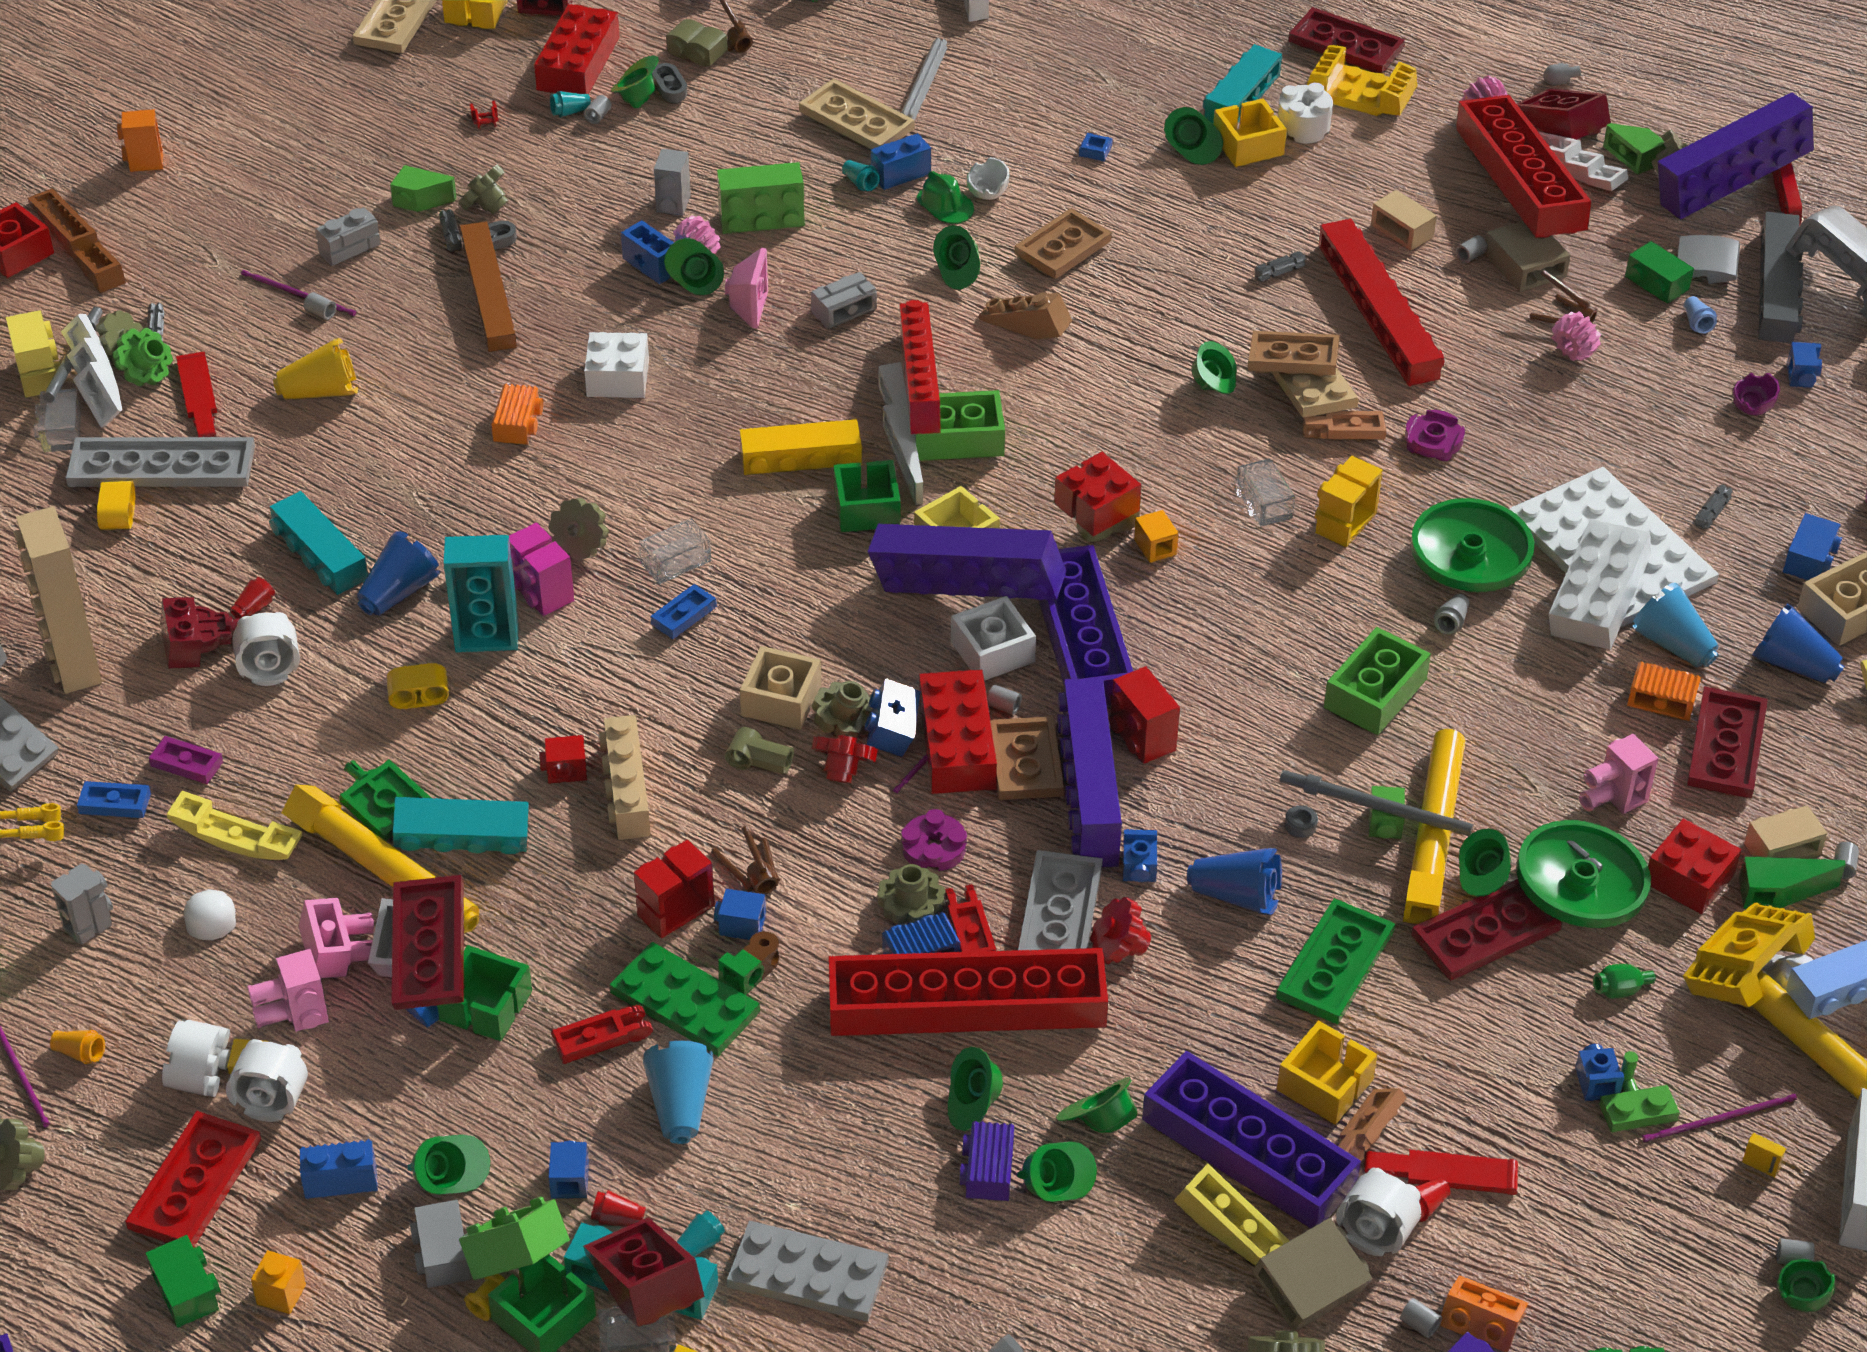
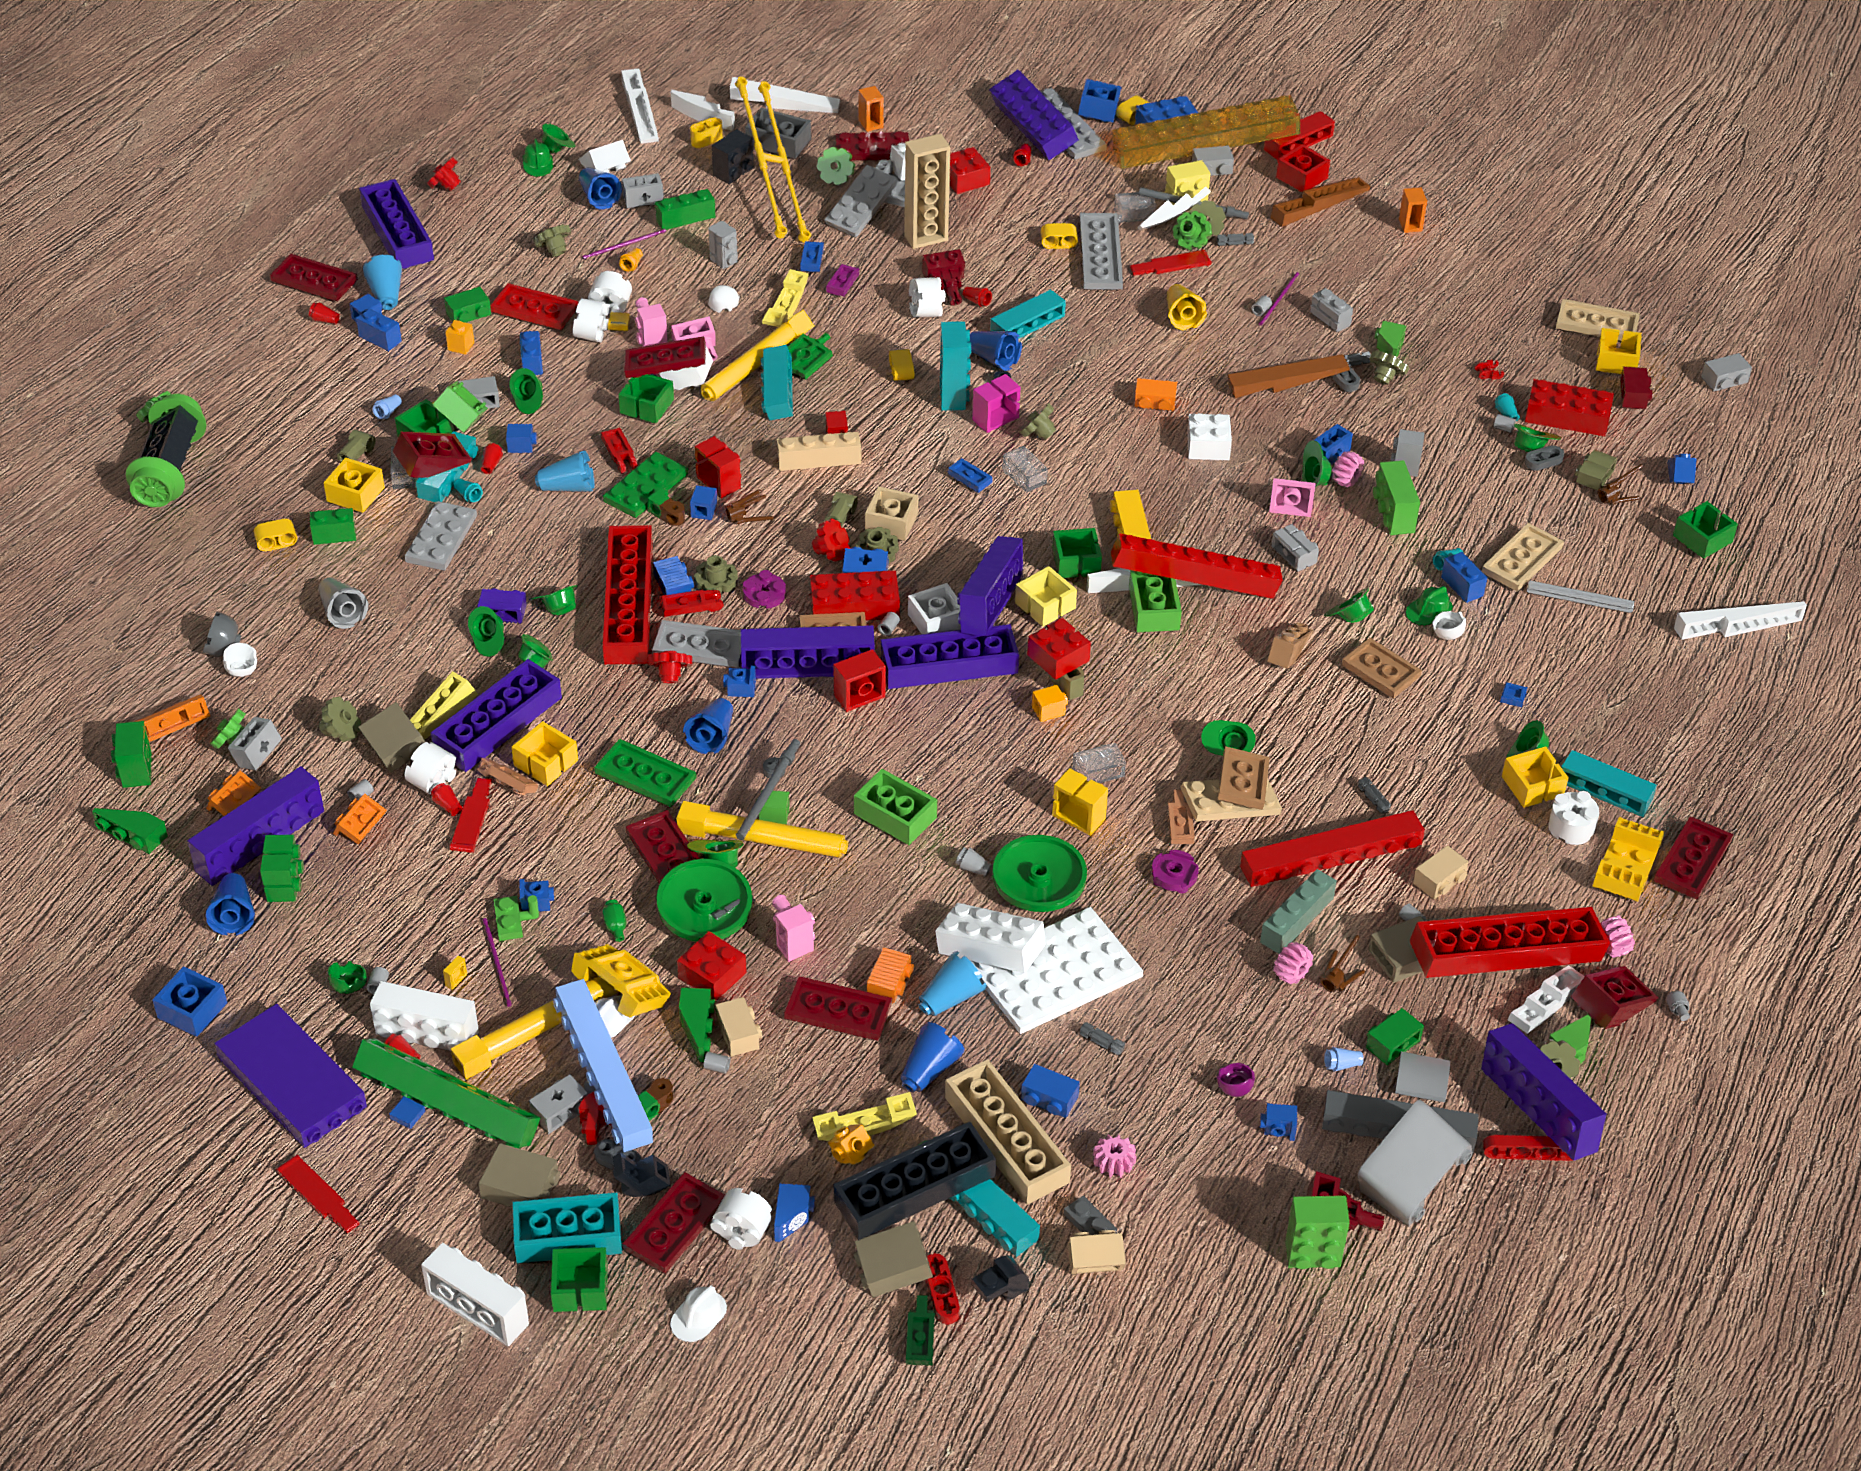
camera: 90 degrees right, 0 degrees up
(1488, 332) = (1298, 911): none -> sand green brick

